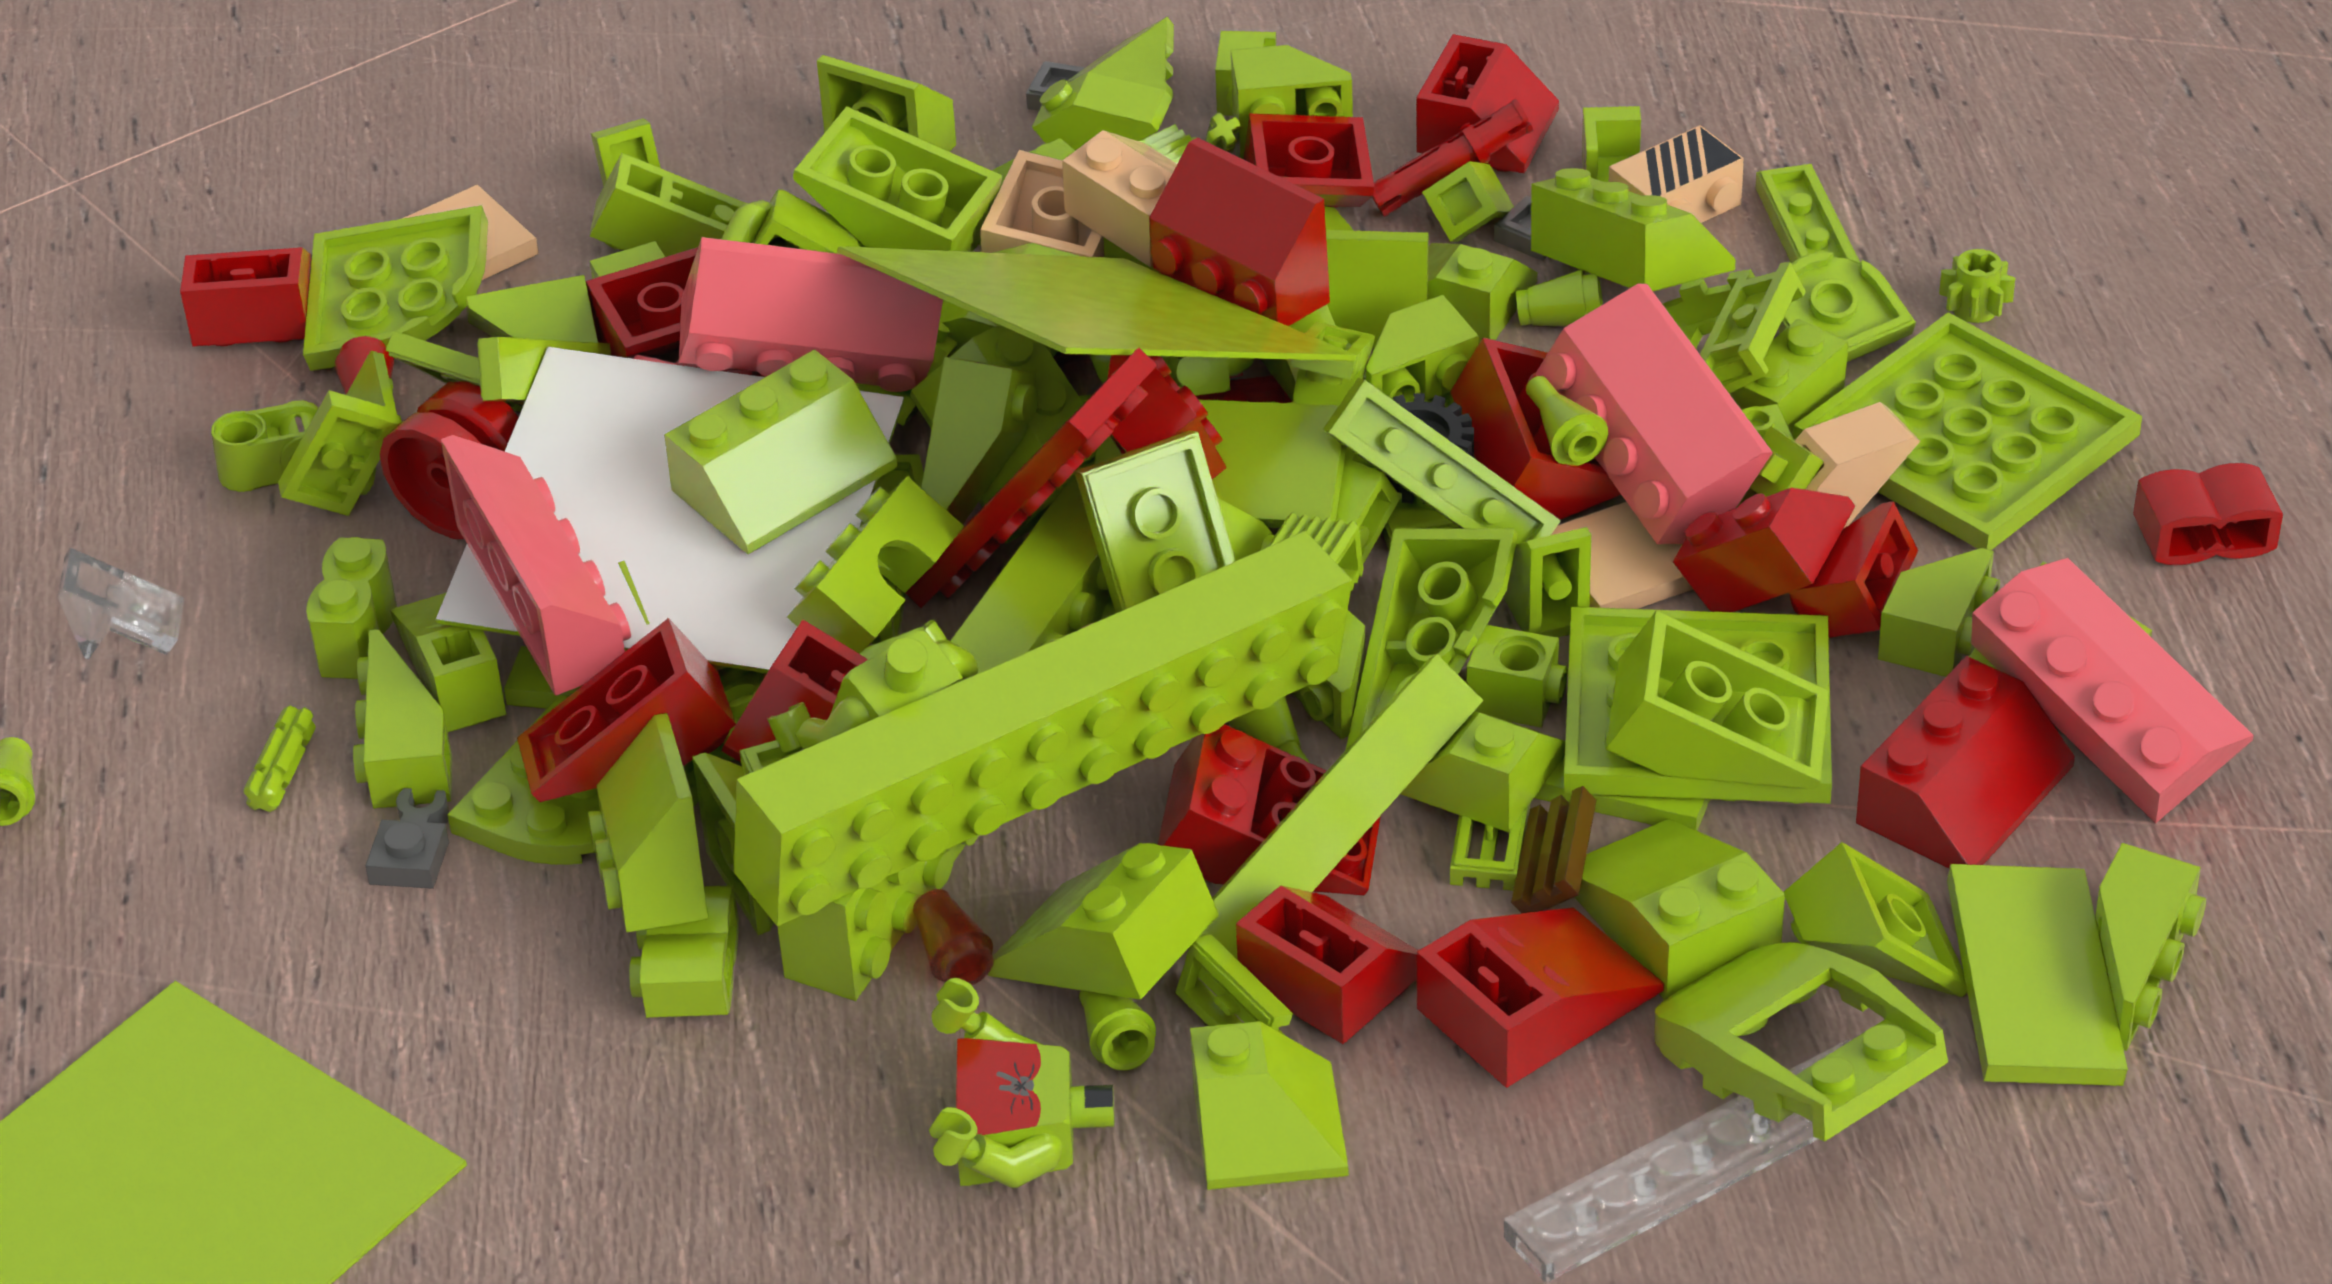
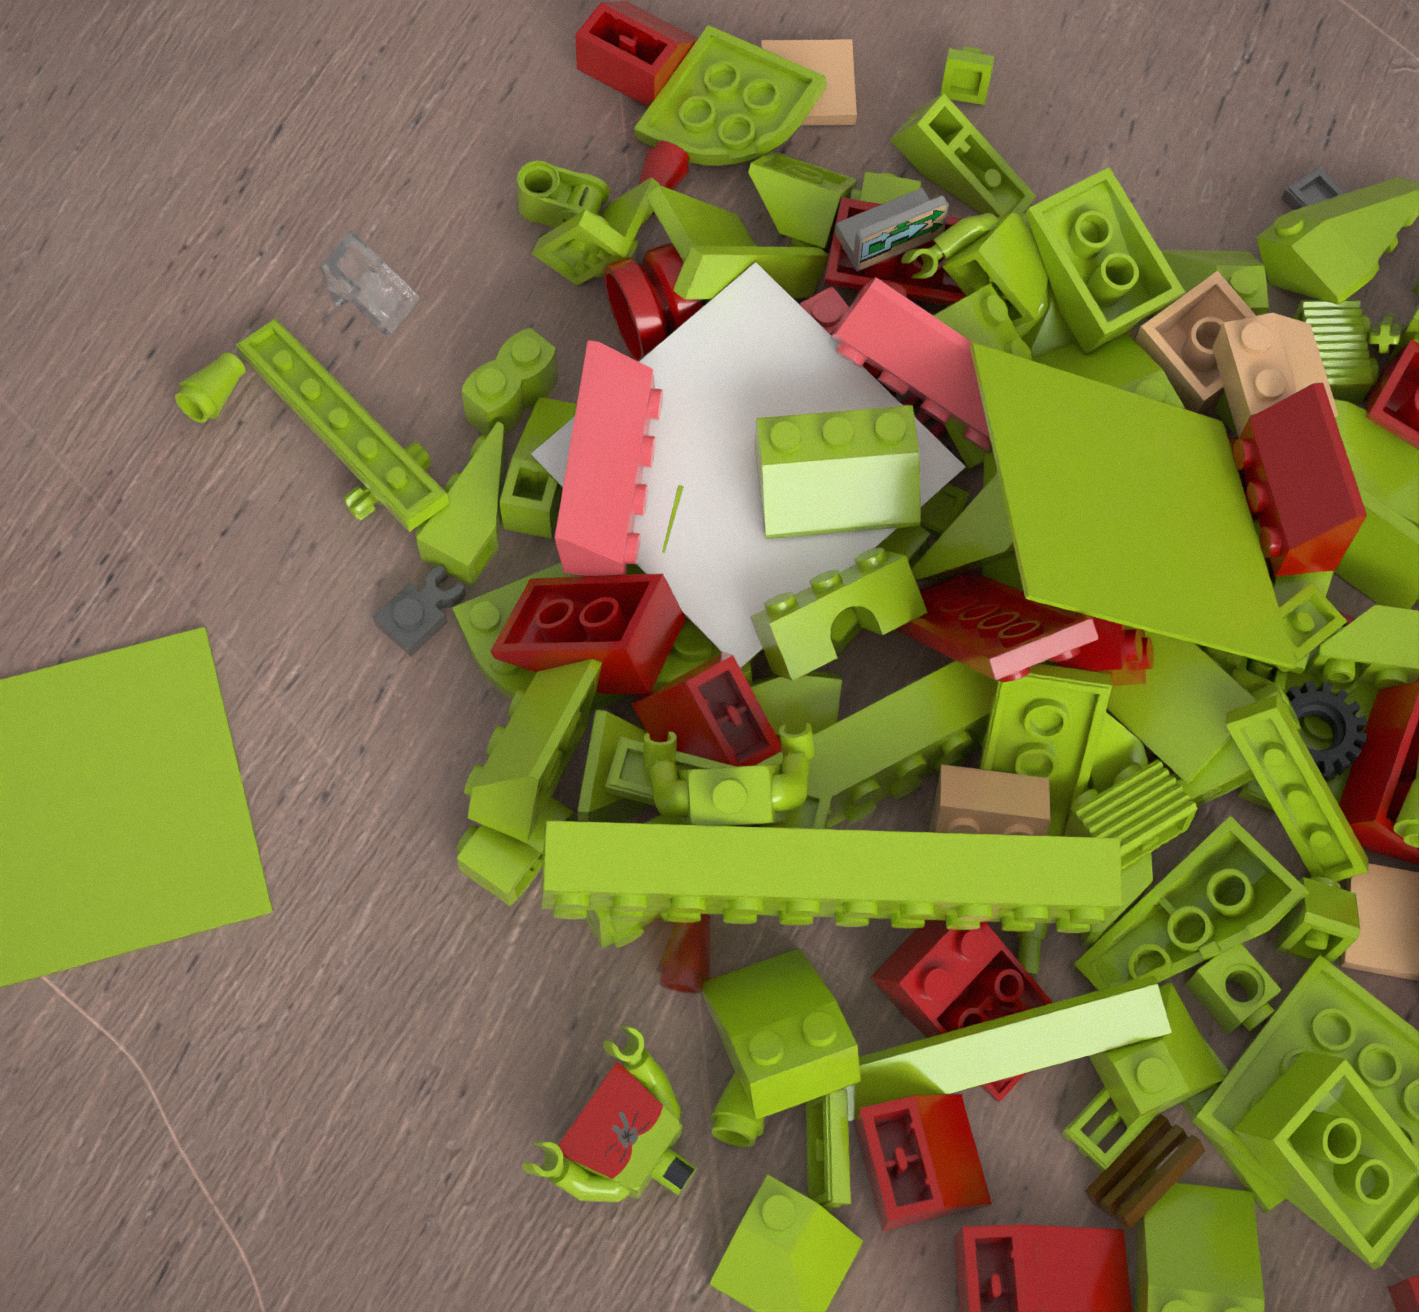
camera: 30 degrees right, 25 degrees up
(193, 725) = (343, 425): none -> lime tile
(660, 271) = (892, 228): none -> panel
(886, 98) = (1163, 157): lime slope -> none

